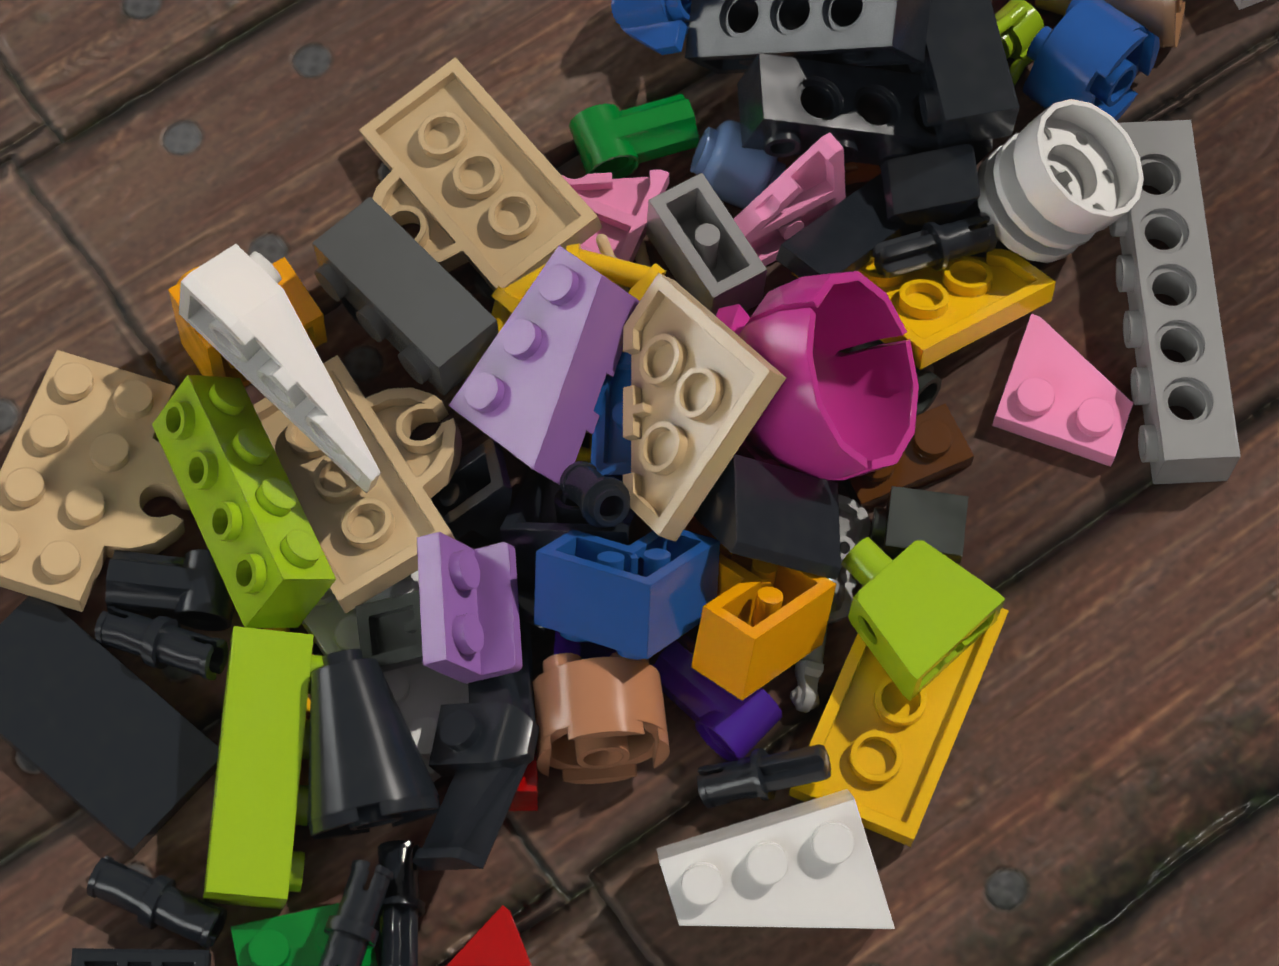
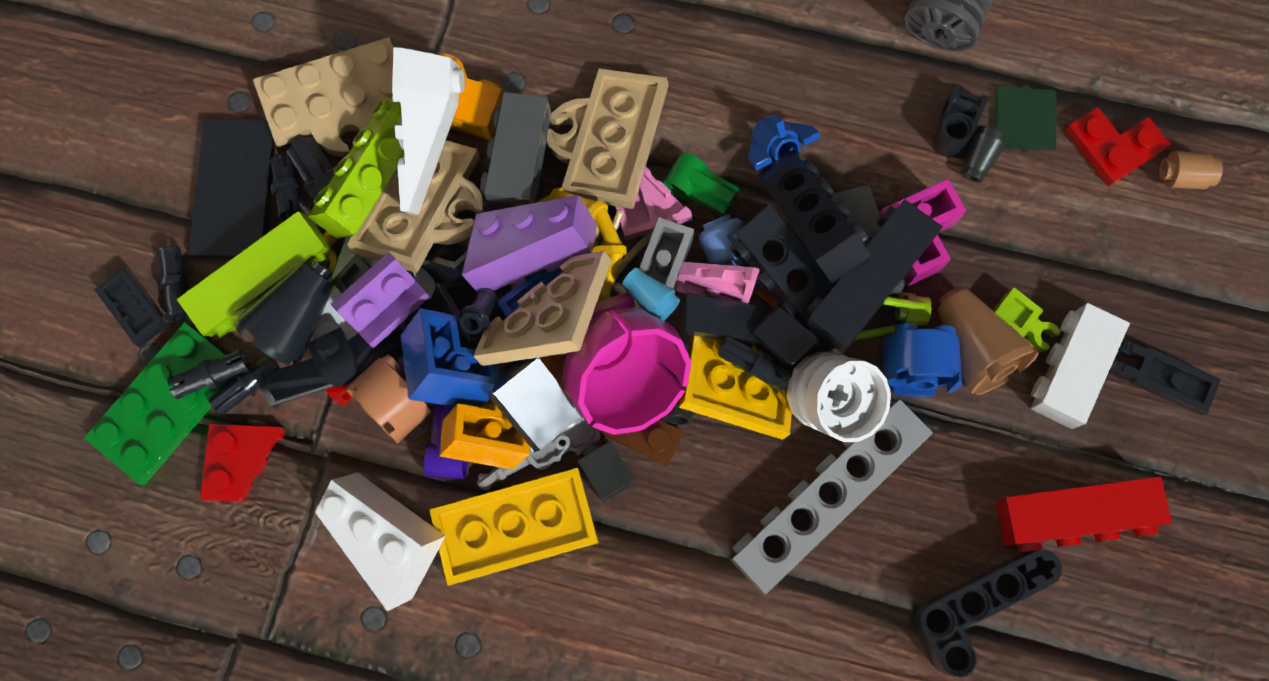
camera: 60 degrees right, 10 degrees up
(747, 277) = (651, 294): none -> medium azure cone
(761, 775) = (424, 492): black axle -> none
(917, 610) = (553, 500): lime torso -> none
(1061, 398) = (736, 482): bright pink wing -> none

